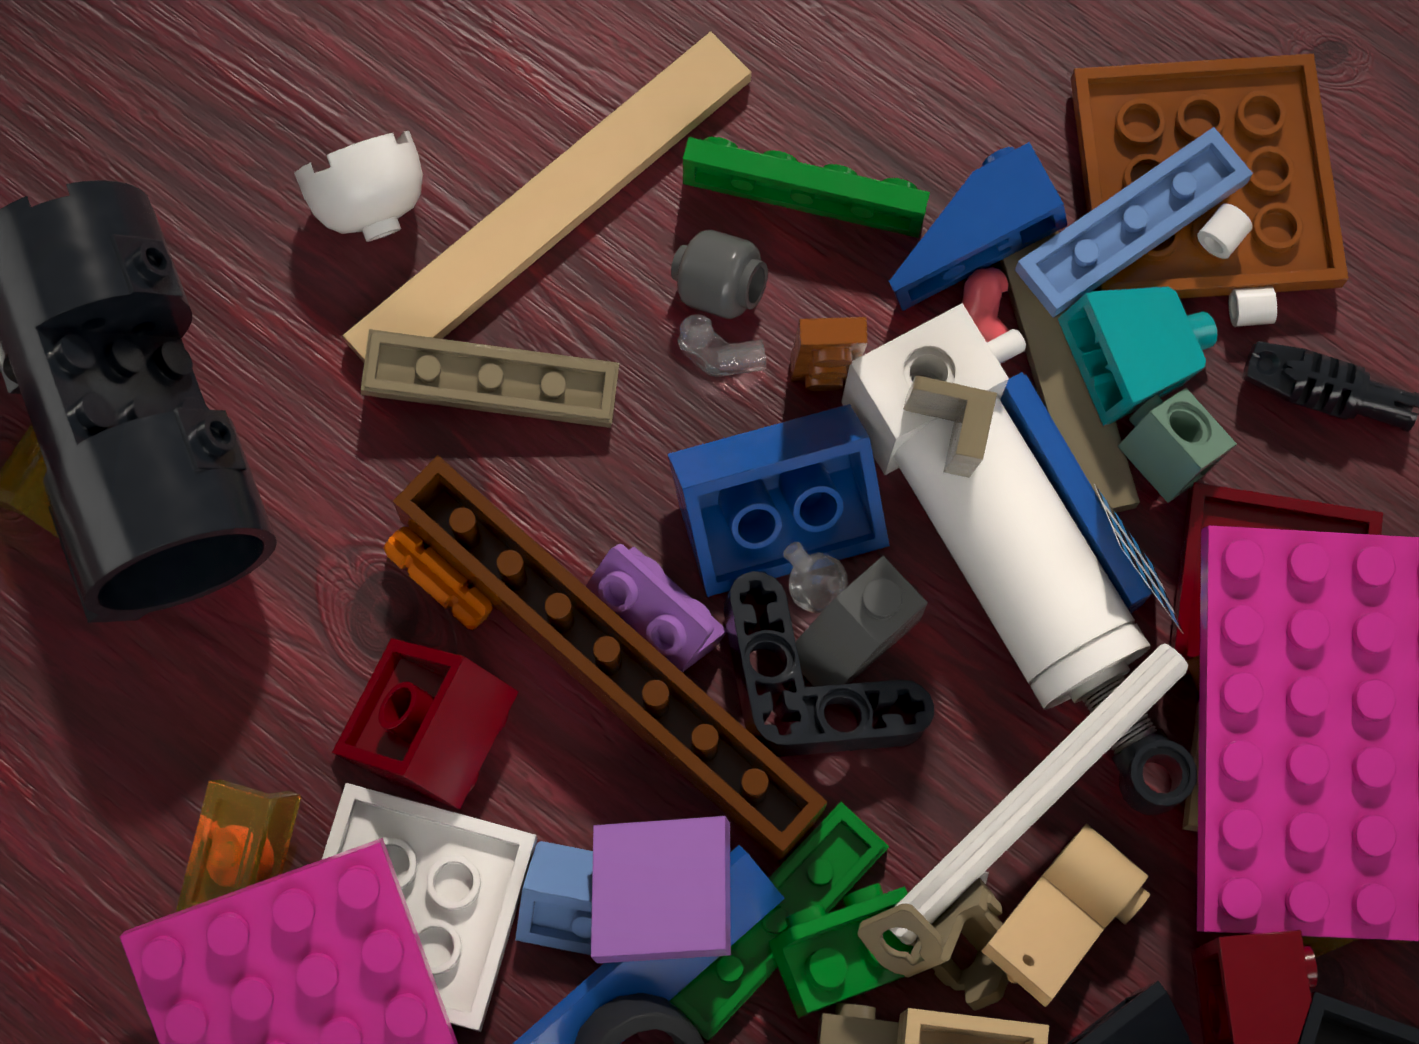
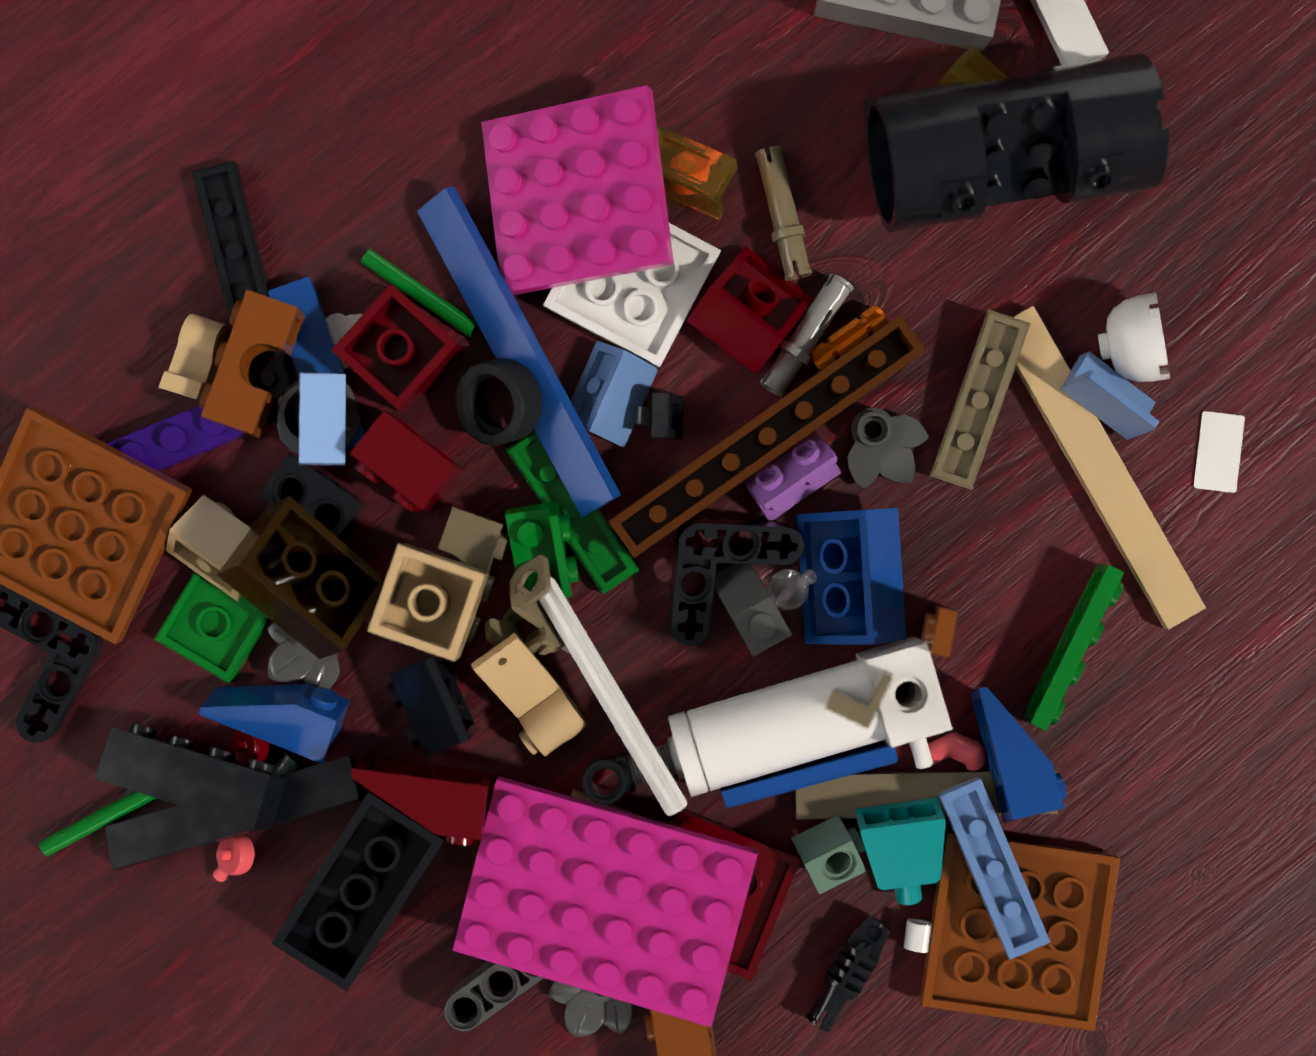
camera: 105 degrees right, 15 degrees up
(274, 706) = (787, 231): none -> dark tan pin
(441, 632) = (796, 350): none -> light grey pin
(451, 207) = (1110, 397): none -> medium blue panel
(495, 60) = (1219, 451): none -> white sticker
(588, 488) = (888, 452): none -> dark grey plate
(606, 807) = (663, 416): none -> black tile
(661, 890) = (601, 437): medium lavender tile -> none
(714, 354) = (965, 556): clear arm -> none
(719, 274) = (1020, 572): dark grey head -> none
(1138, 558) = (752, 804): sticker -> none
(1225, 231) = (973, 929): white piece -> none

